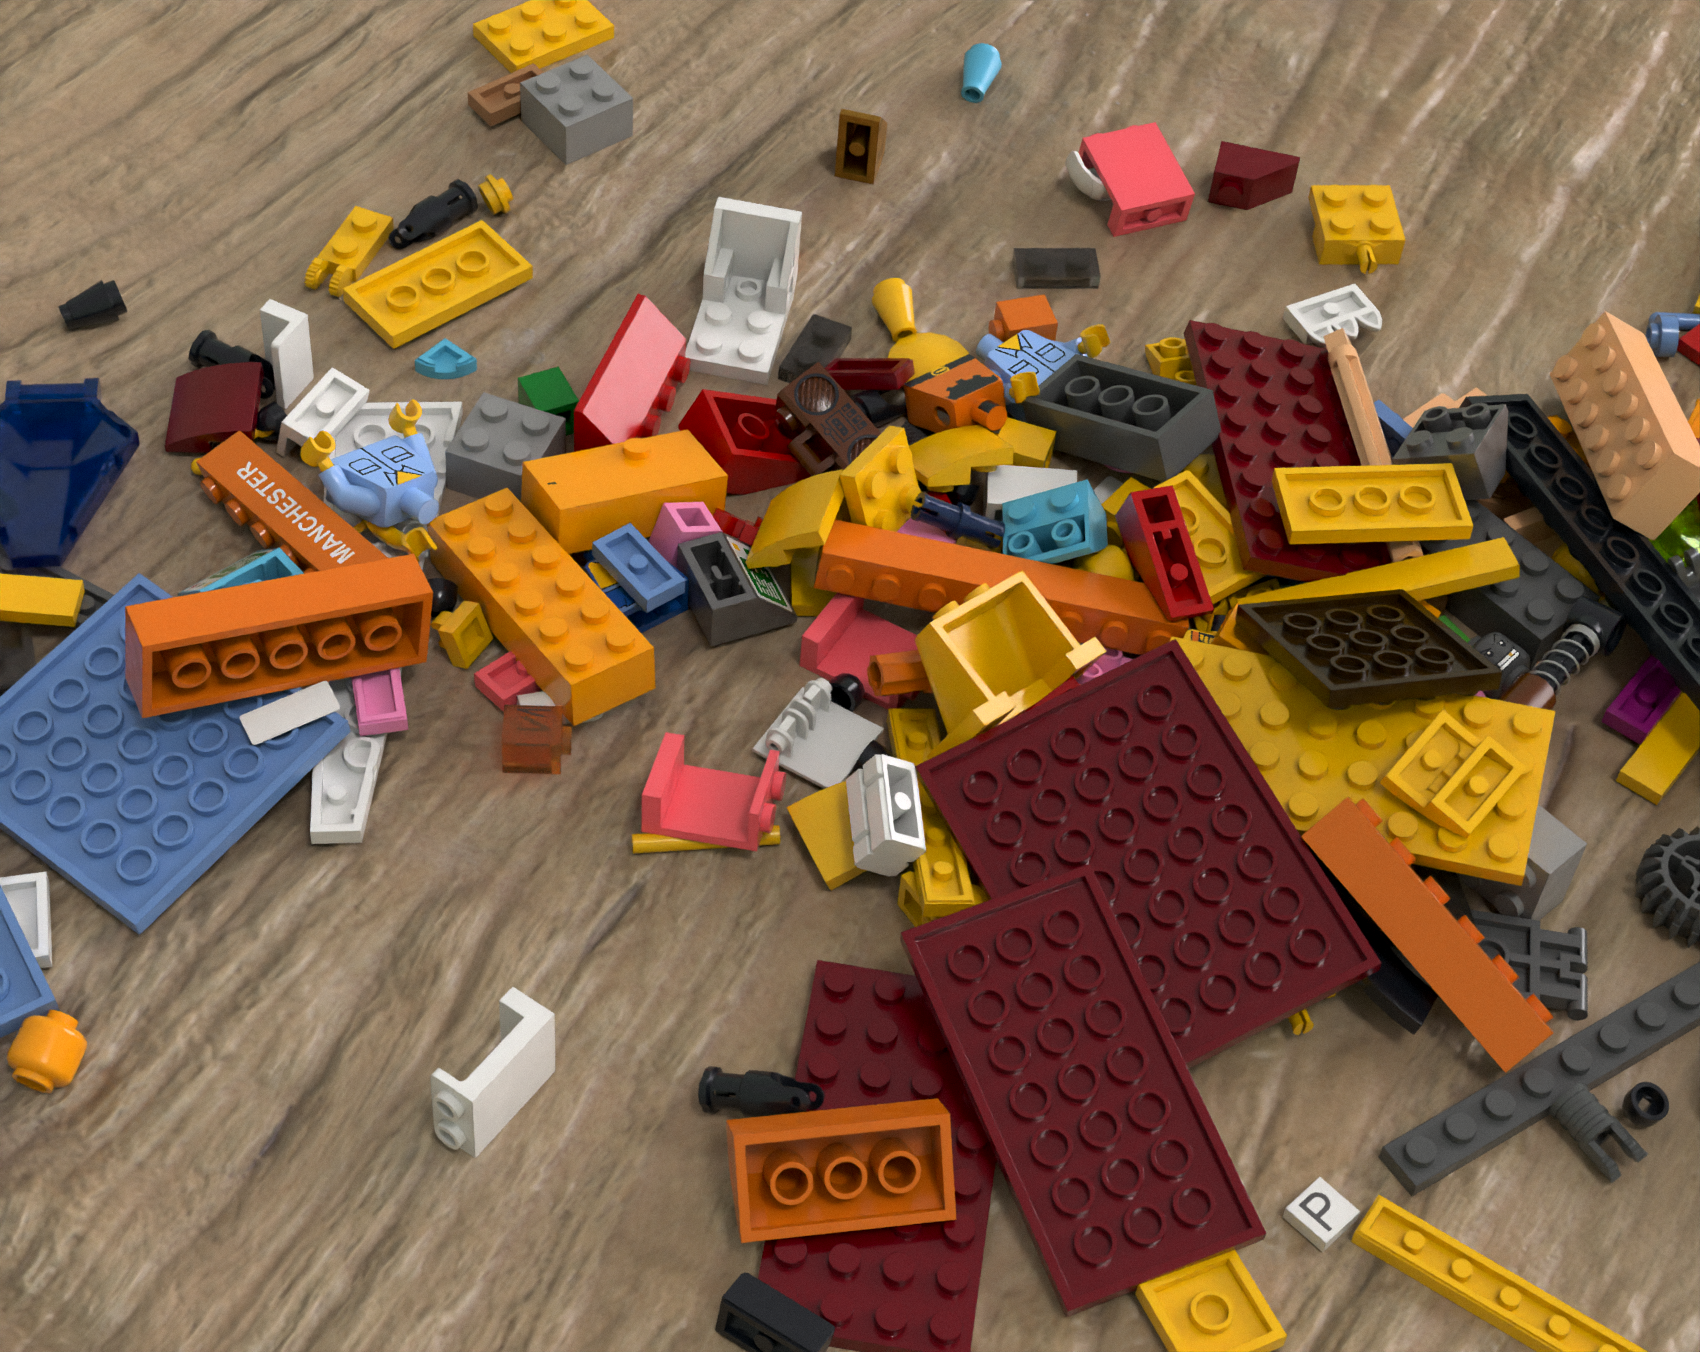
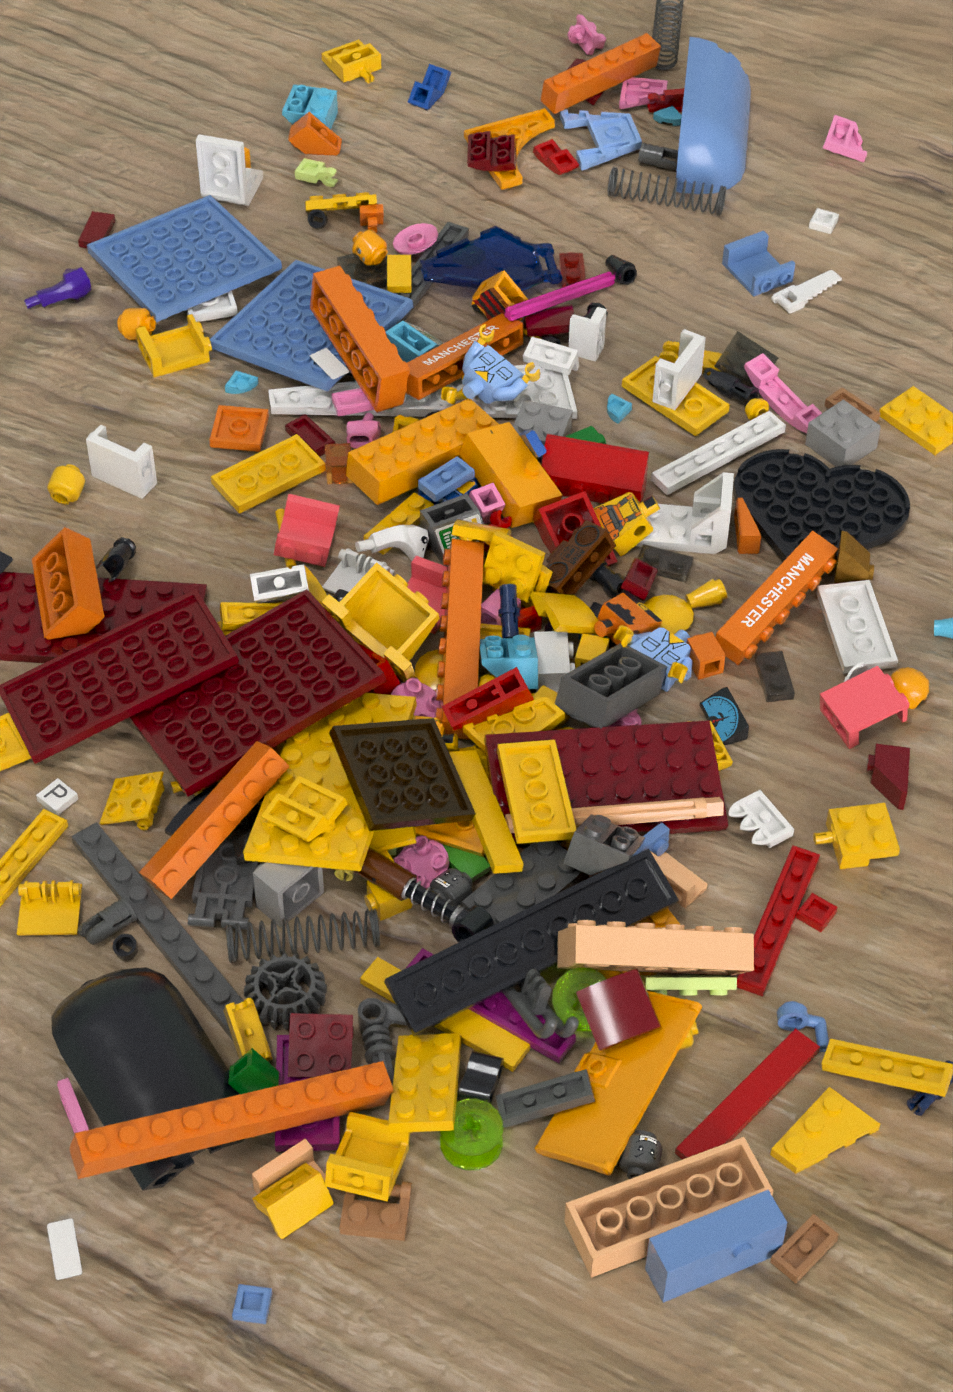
camera: 90 degrees right, 0 degrees up
(38, 54) = (823, 221): none -> white tile
(74, 367) = (571, 268): none -> clear red plate
(130, 990) = (174, 348): none -> yellow panel
(139, 147) = (755, 266): none -> medium blue panel
(157, 461) = (496, 295): none -> torso
(166, 383) = (559, 296): none -> dark pink axle
(218, 114) = (805, 291): none -> white piece
(257, 888) = (241, 383): none -> medium azure tile
(379, 186) = (739, 352): none -> clear smoke plate
(401, 890) = (239, 428): none -> orange plate
(430, 234) = (676, 379): none -> white panel
(434, 786) = (310, 434): none -> dark red tile
(450, 699) = (363, 431): none -> bright pink piece
(516, 151) = (779, 397): none -> bright pink slope
(520, 1187) = (66, 484): none -> yellow head
(537, 851) = (268, 473): none -> yellow plate
(575, 243) = (718, 452): none -> white plate
(588, 432) = (533, 442): none -> blue tile
(694, 678) = (405, 514): none -> yellow plate
(711, 139) = (801, 495): none -> black plate
(744, 359) = (627, 520): none -> torso
(747, 655) = (408, 538): none -> white animal
(923, 225) = (776, 597): none -> orange brick
(969, 166) = (856, 625): none -> white plate
(1076, 126) = (912, 684): none -> light orange hair
(1138, 324) = (725, 716): none -> slope
(1330, 1089) = (134, 799): none -> yellow hinge
(1470, 323) = (779, 918): none -> red tile
(1480, 294) = (816, 912): none -> red tile
(1569, 1224) = (49, 908): none -> yellow hinge
(1619, 966) = (233, 955): none -> dark grey piece

